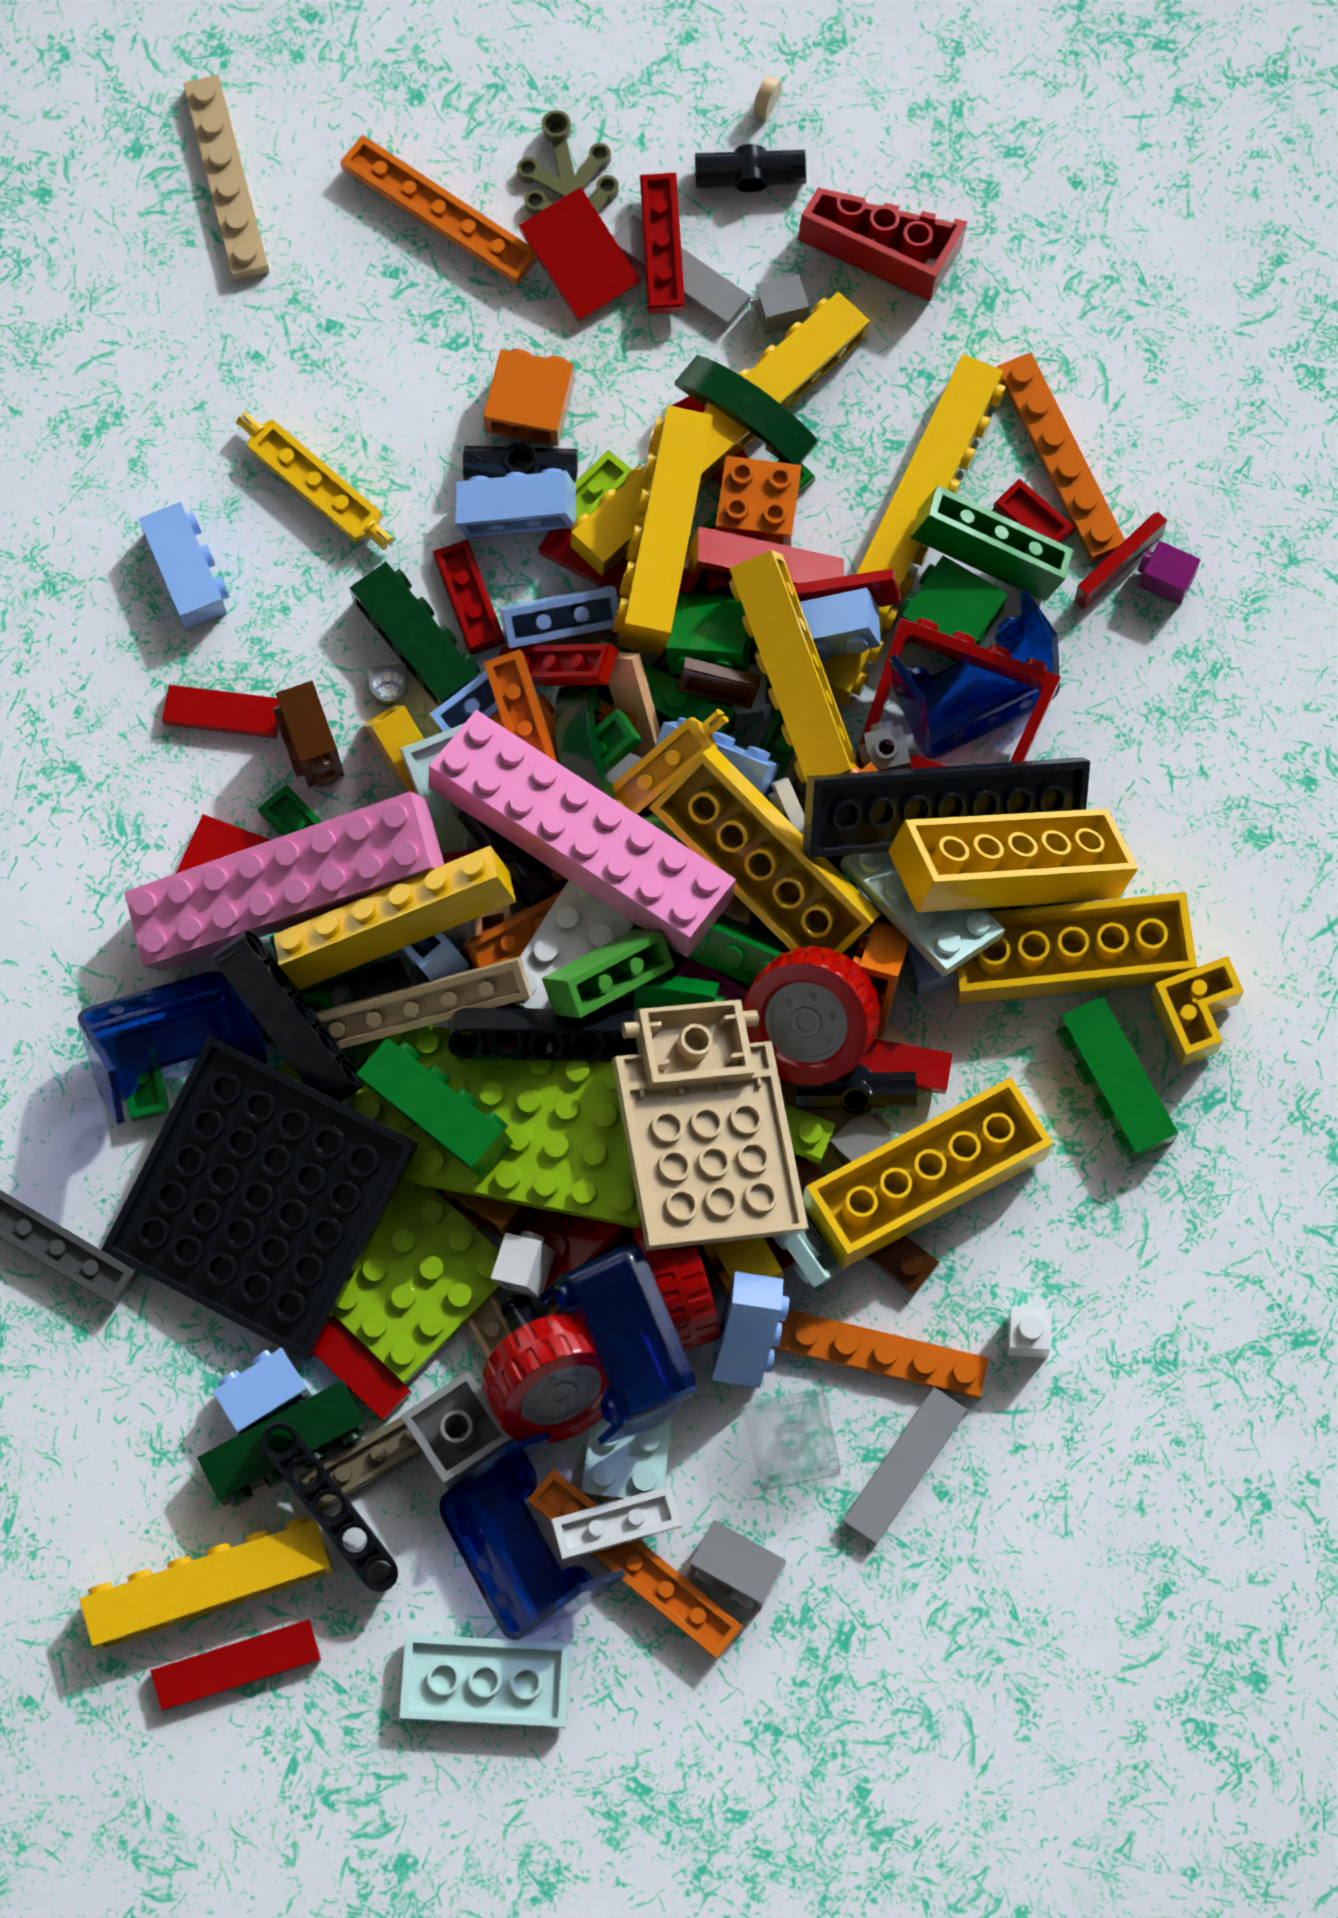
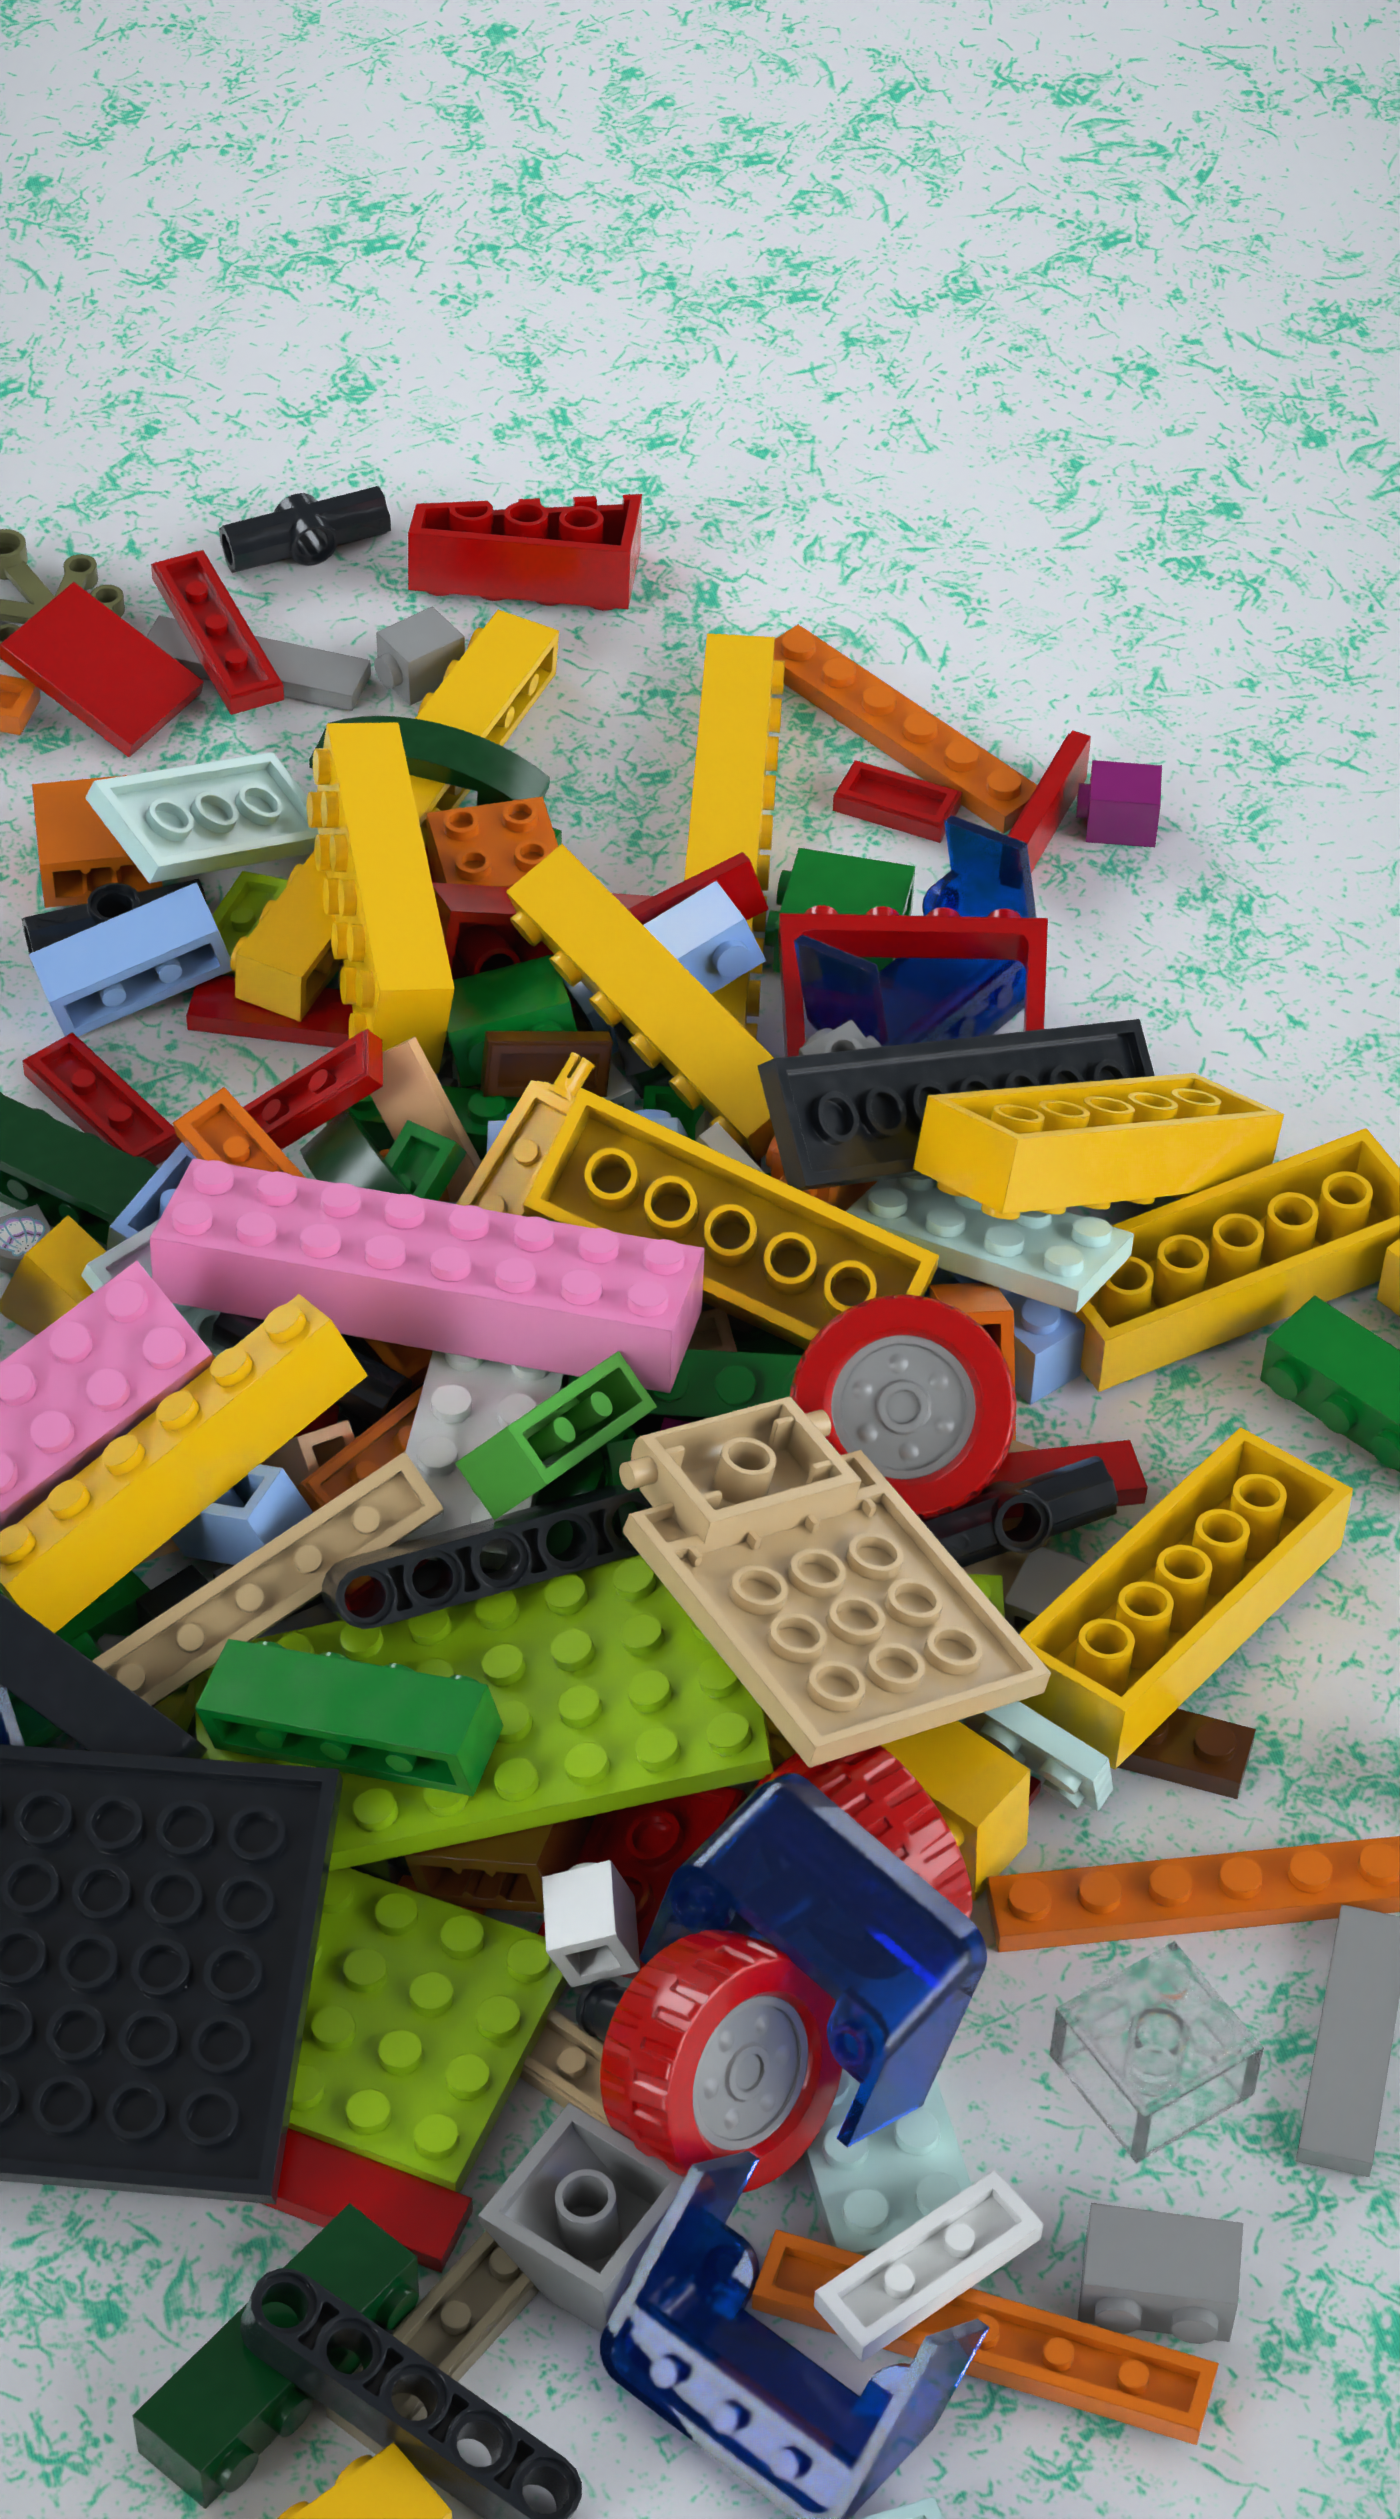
camera: 25 degrees left, 25 degrees down
(260, 1390) = (201, 2278): light blue brick -> none
(559, 616) = (255, 1061): light blue brick -> none
(594, 410) = (206, 816): none -> light aqua plate
(750, 1329) = (1019, 1880): light blue brick -> none
(767, 97) = (293, 454): tan tile -> none
(991, 543) = (851, 811): green brick -> none

